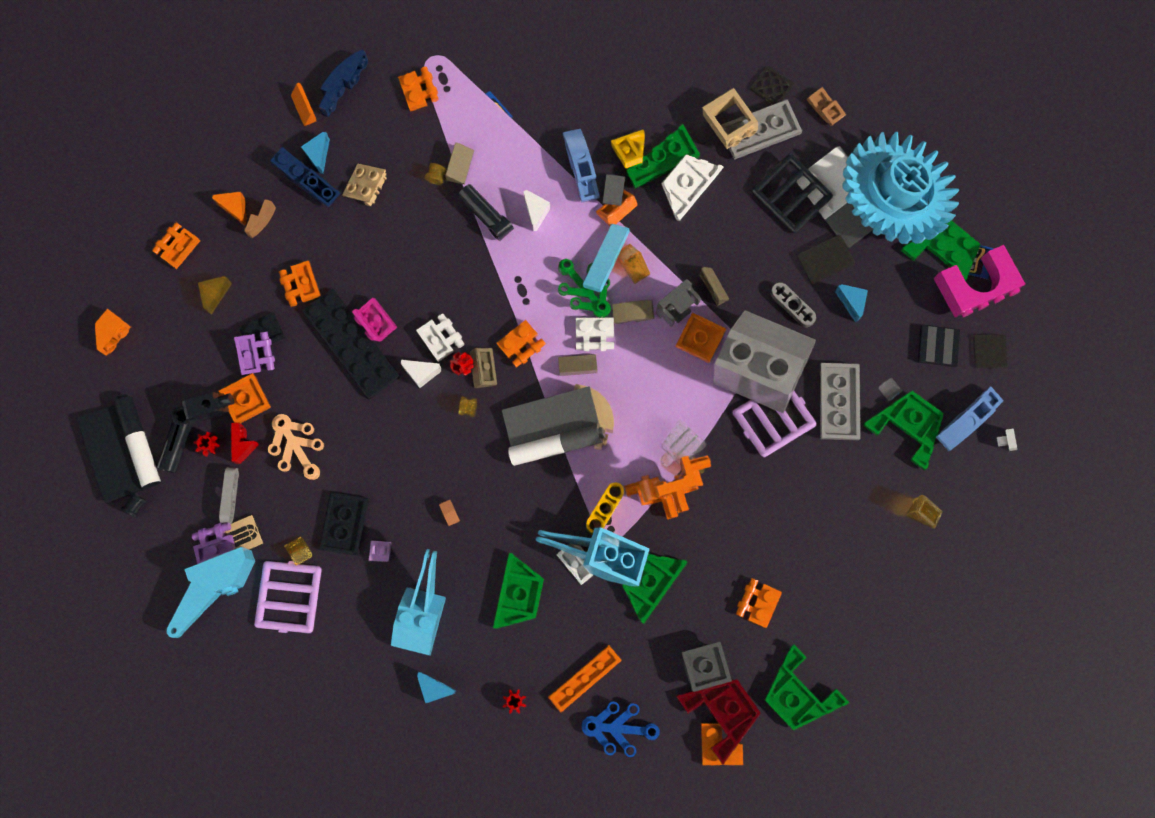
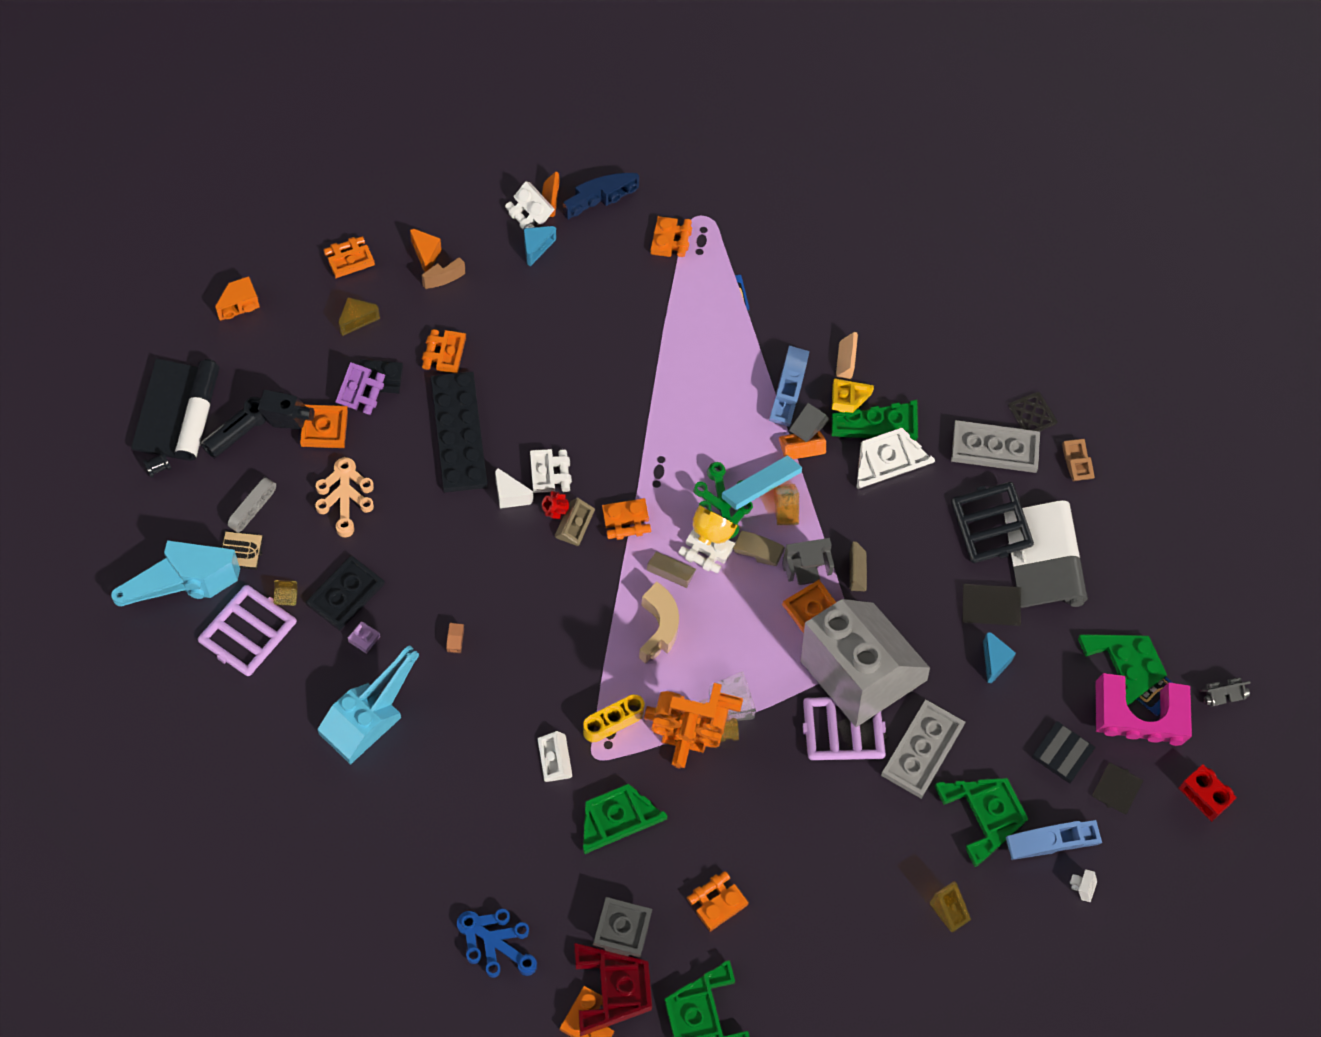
camera: 25 degrees right, 15 degrees down
(202, 446) = (265, 444): red gear -> none
(210, 549) = (204, 528): medium lavender plate -> none
(240, 448) = (292, 466): red slope -> none
(296, 120) = (531, 201): none -> white plate
(304, 177) = (510, 259): dark blue slope -> none
(364, 184) = (565, 295): tan hinge -> none
(374, 320) = (495, 421): dark pink bracket -> none
(433, 689) = (332, 796): dark azure slope -> none
(435, 174) = (639, 320): clear yellow wheel -> none
(459, 163) = (668, 323): dark tan slope -> none
(468, 406) = (536, 548): clear yellow wheel -> none
(496, 223) = (671, 395): black piece -> none
(513, 706) = (410, 858): red gear -> none
(519, 594) = (475, 753): green wing -> none
(537, 208) = (720, 402): white slope -> none
(552, 426) = (609, 609): dark grey door -> none
(584, 678) = (491, 873): orange tile -> none
(592, 317) = (712, 526): none -> yellow cylinder
(607, 556) = (583, 756): medium azure slope -> none
(610, 116) = (847, 356): none -> light nougat slope
(720, 105) = (963, 401): tan window -> none
(801, 304) = (932, 620): light grey beam -> none
(890, 389) = (985, 767): clear piece -> none
(899, 189) = (1106, 573): medium azure gear -> none
(1032, 227) = (1216, 693): none -> dark grey hinge
(1056, 324) = (1203, 796): none -> red brick

